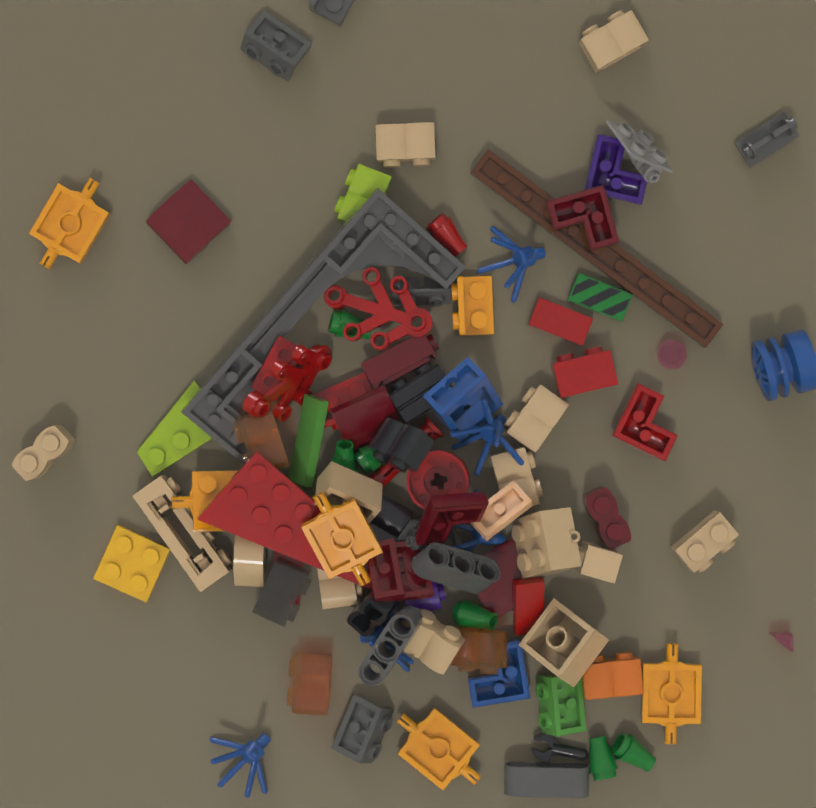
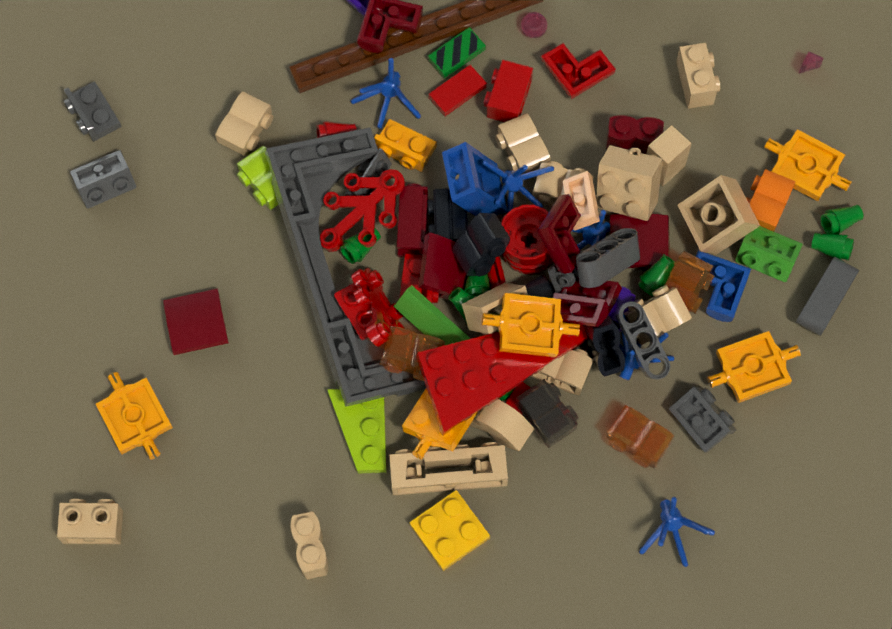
camera: 55 degrees left, 20 degrees down
(527, 603) = (671, 229): red tile -> none
(557, 749) = (806, 277): black bar -> none

